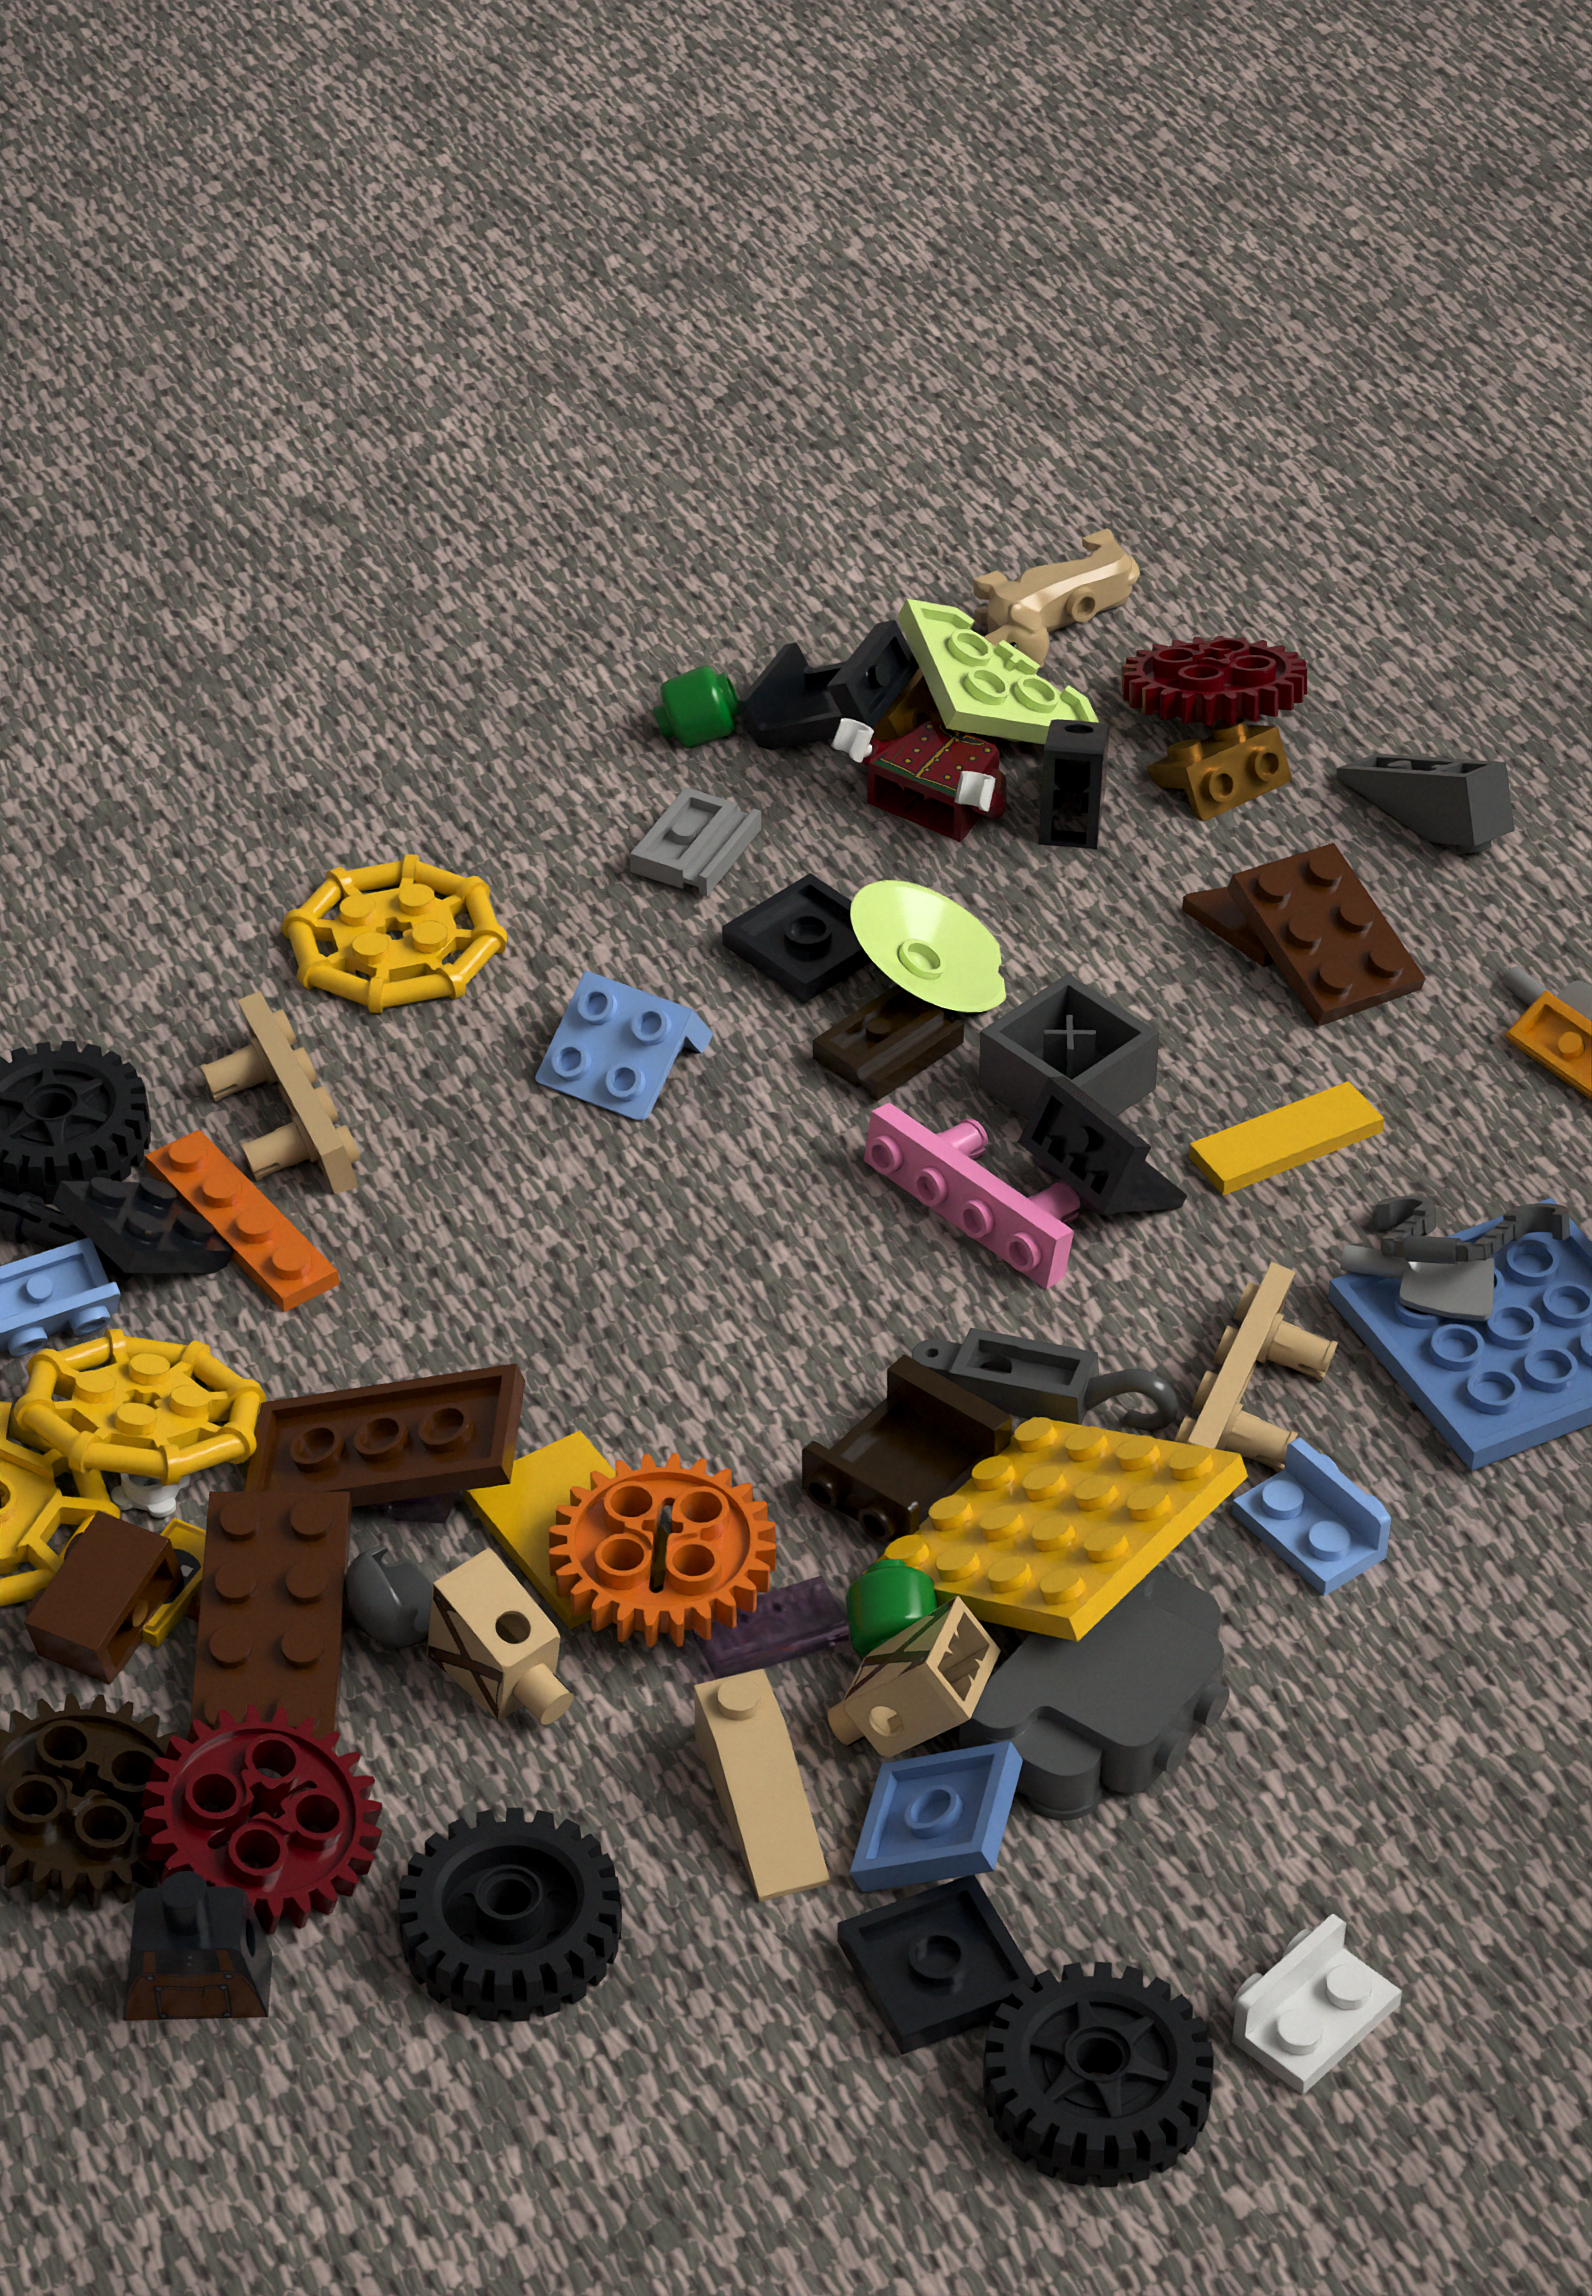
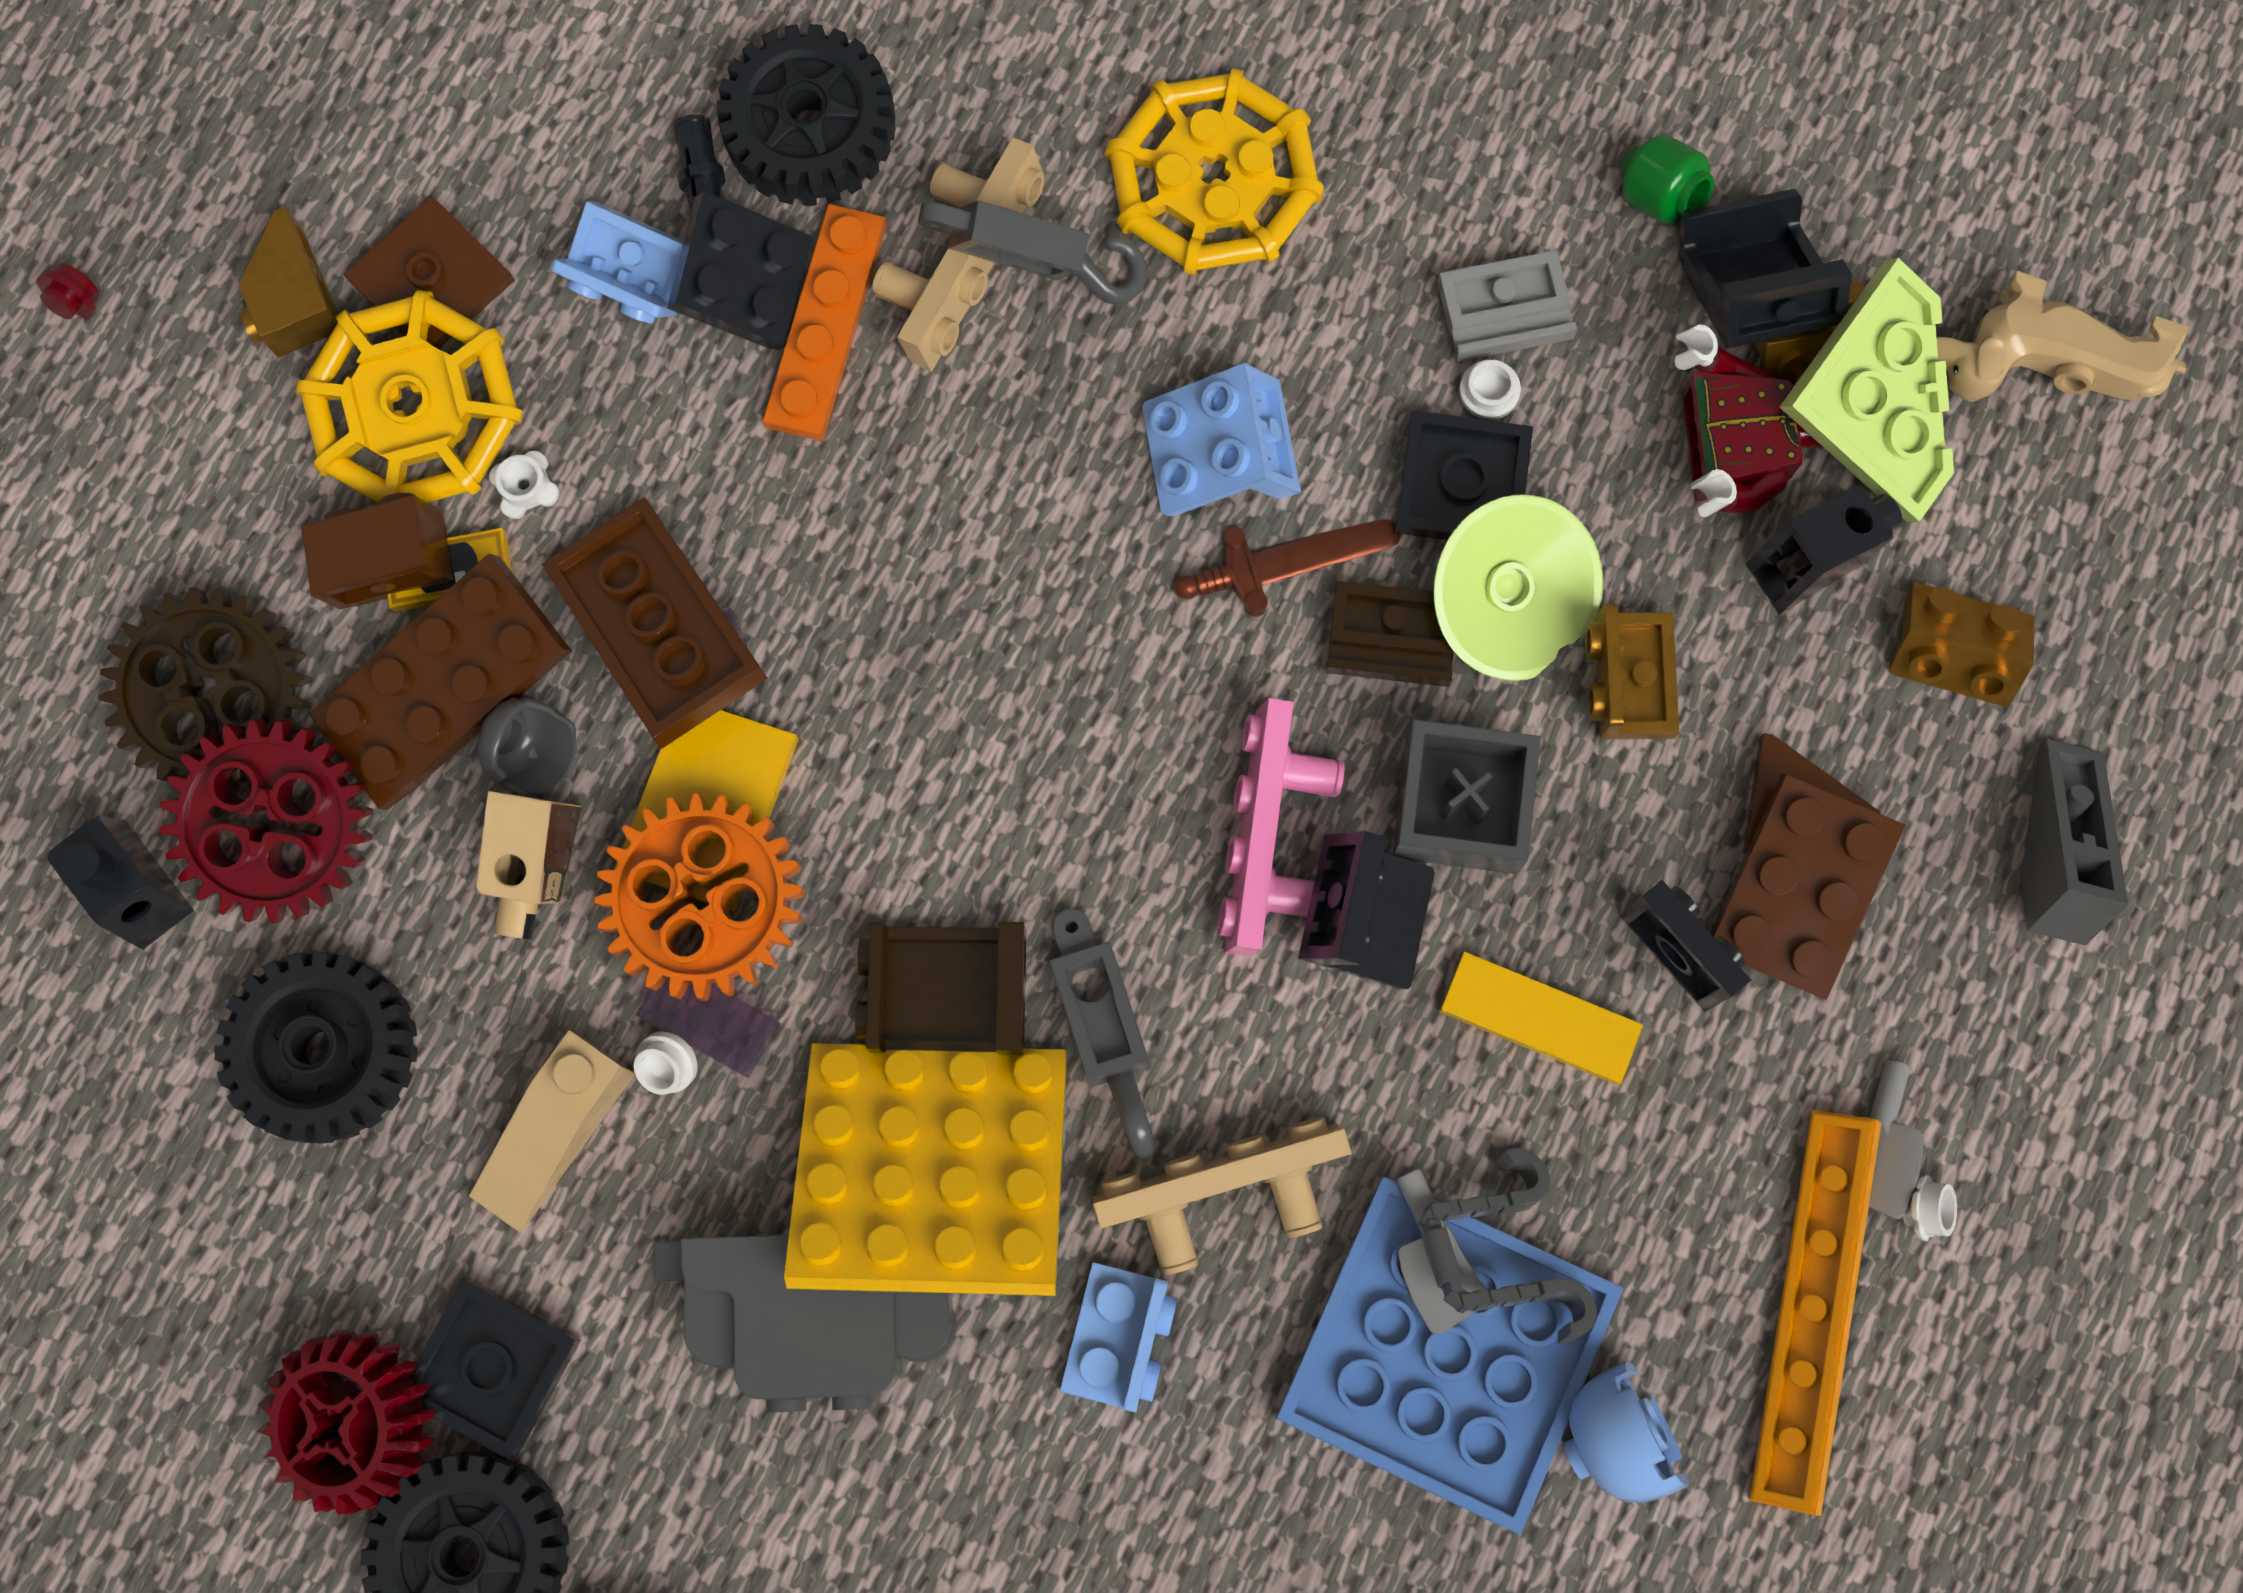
camera: 55 degrees right, 35 degrees up
(141, 1408) = (570, 390): yellow plate -> none
(342, 1033) = (1033, 246): none -> dark grey piece
(749, 884) = (1489, 389): none -> white plate
(749, 1093) = (1249, 570): none -> copper sword
(788, 1672) = (665, 1063): none -> white plate
(886, 1603) = (768, 1105): green head -> none
(917, 1682) = (697, 1185): tan torso -> none
(920, 2066) = (323, 1416): none -> dark red gear
(937, 1817) = (599, 1281): medium blue plate -> none
(1063, 933) = (1634, 674): none -> pearl gold bracket
(1214, 680) = (2063, 562): dark red gear -> none
(1311, 1003) = (1671, 930): none -> black plate

